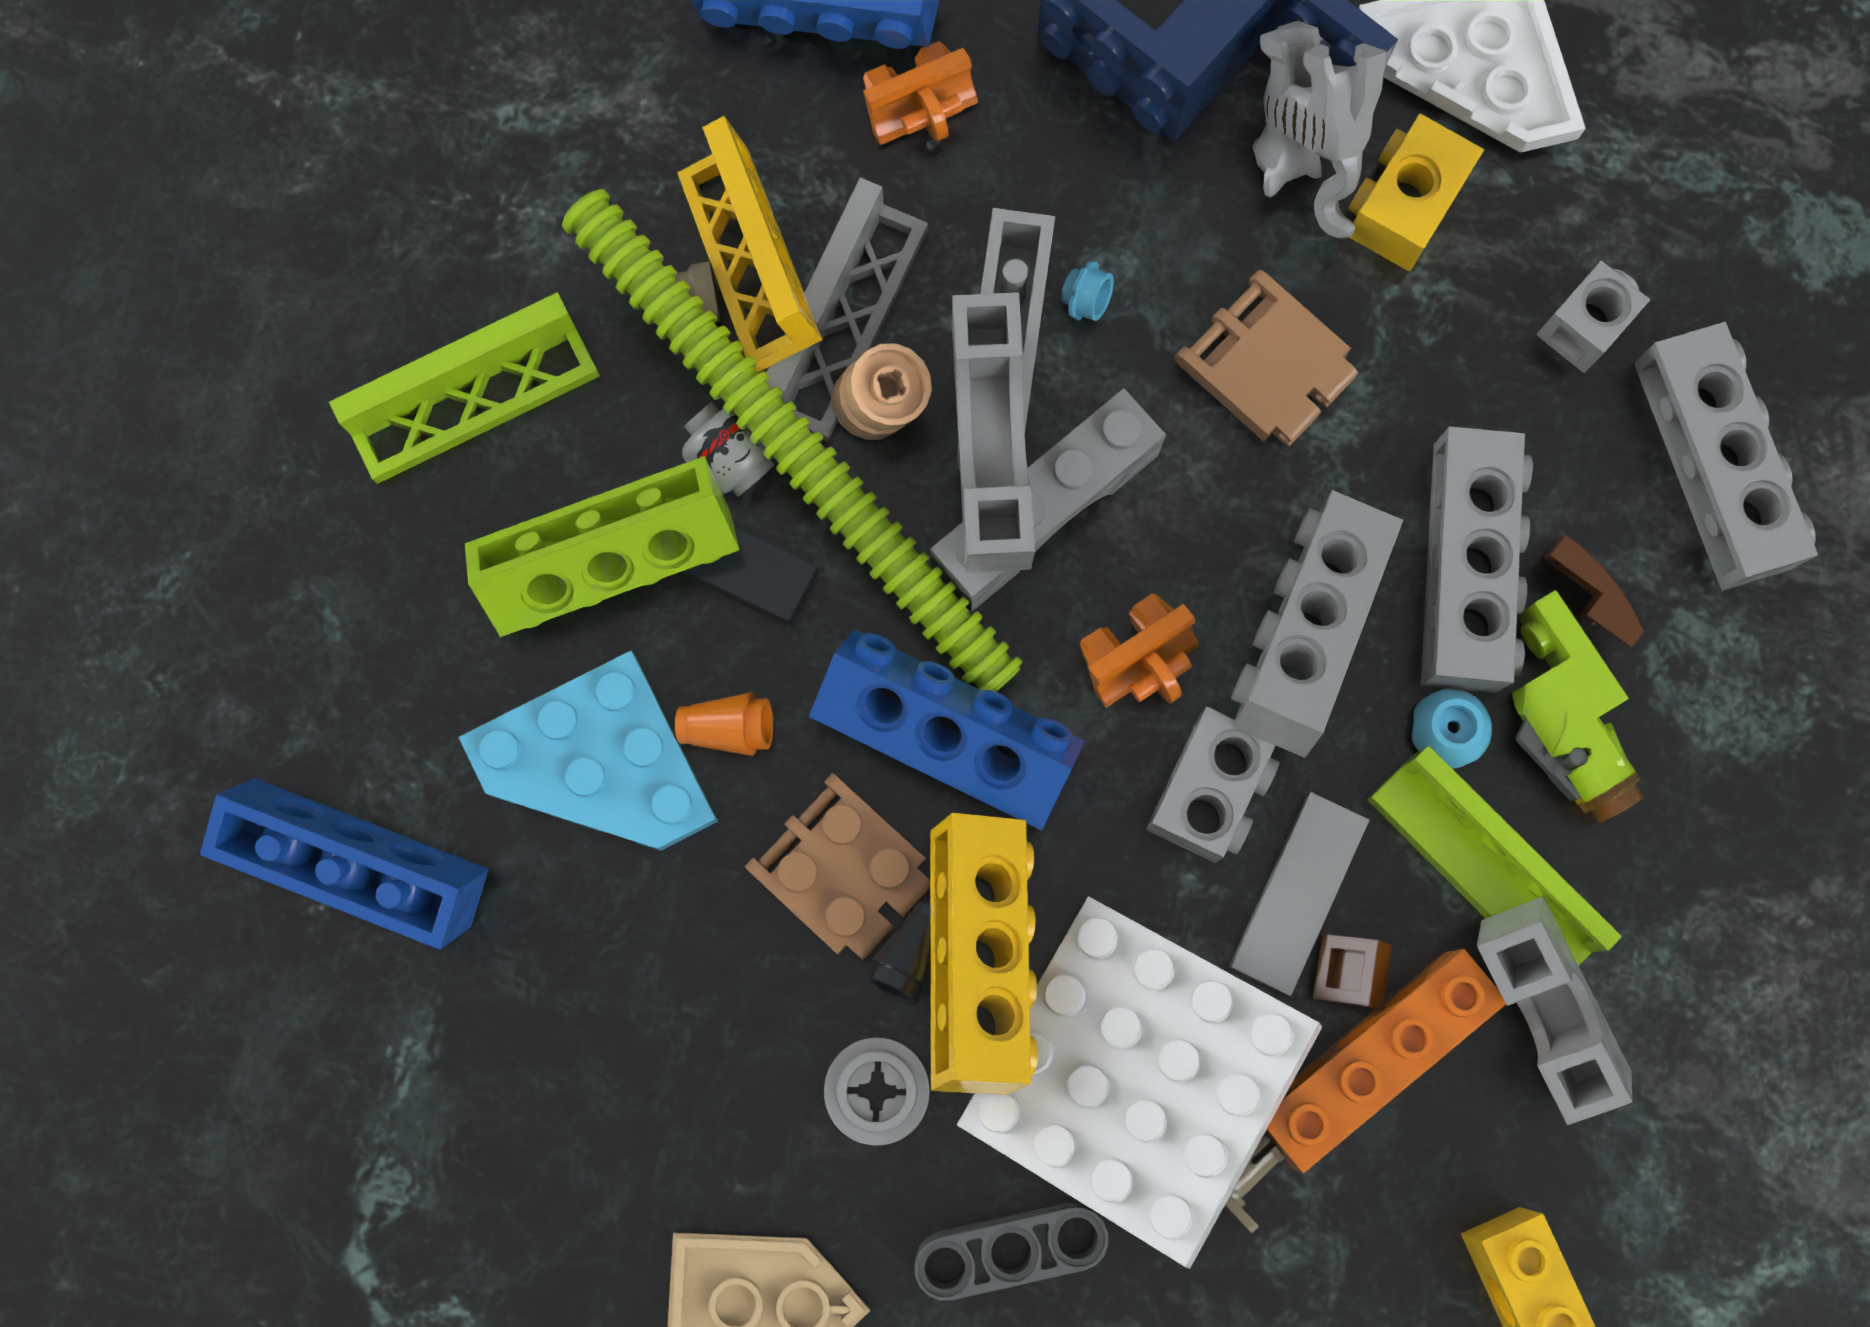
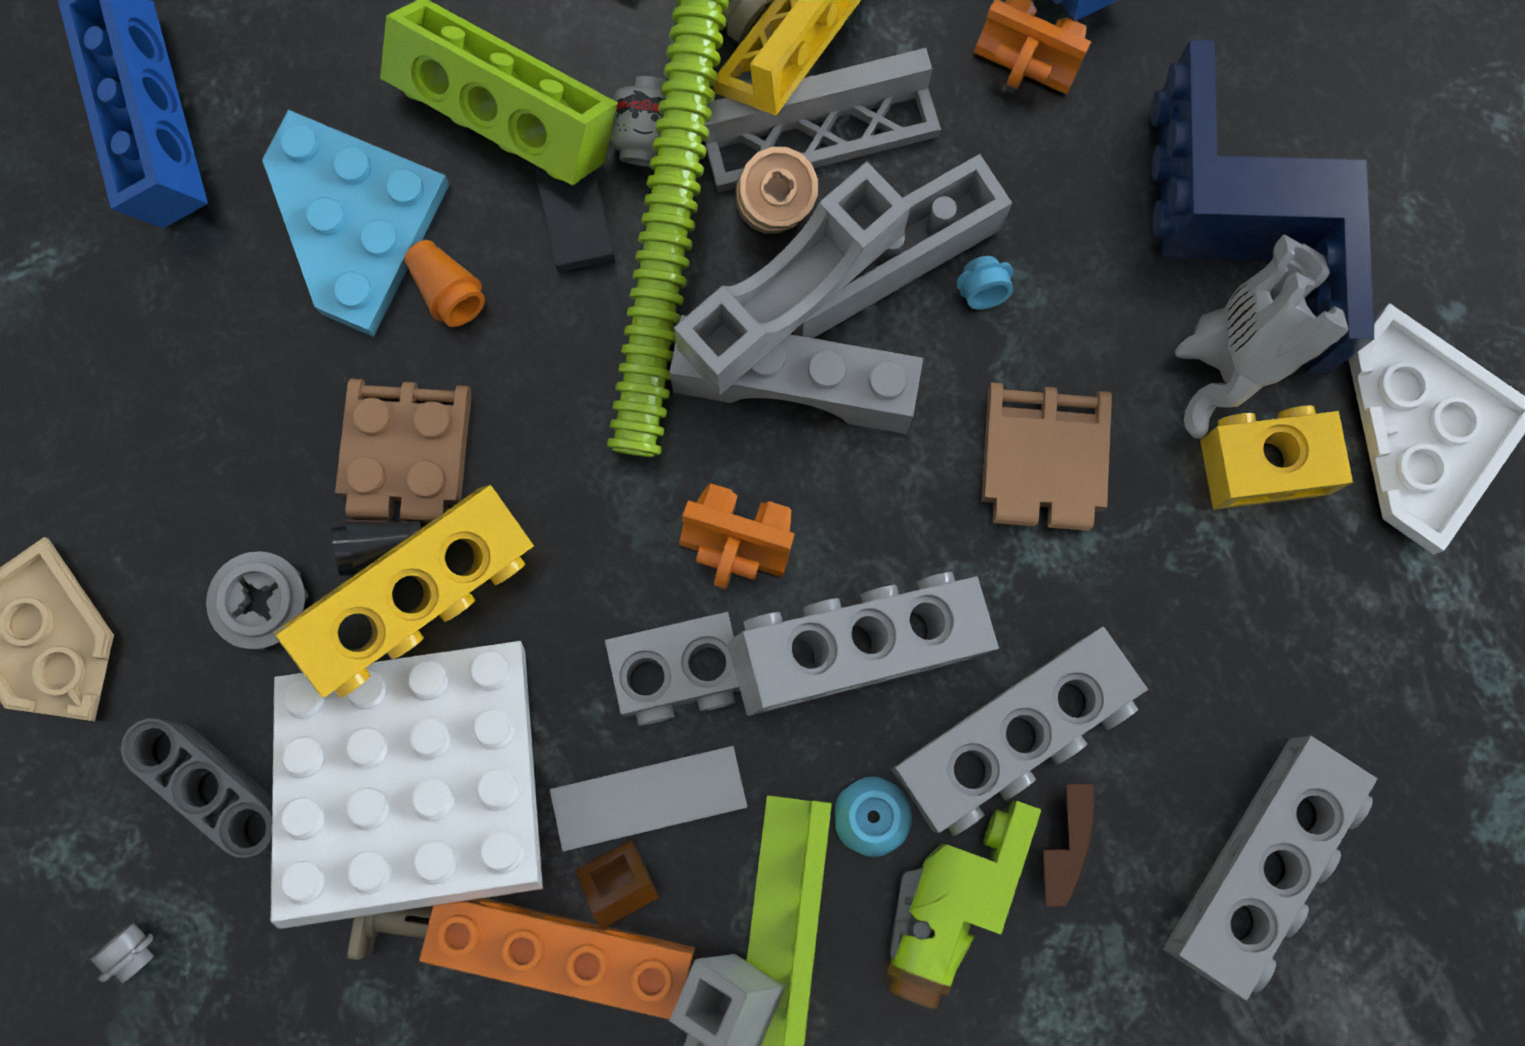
camera: 50 degrees right, 0 degrees up
(914, 735) = (560, 437): blue brick -> none
(1581, 336) = (1270, 678): light grey brick -> none

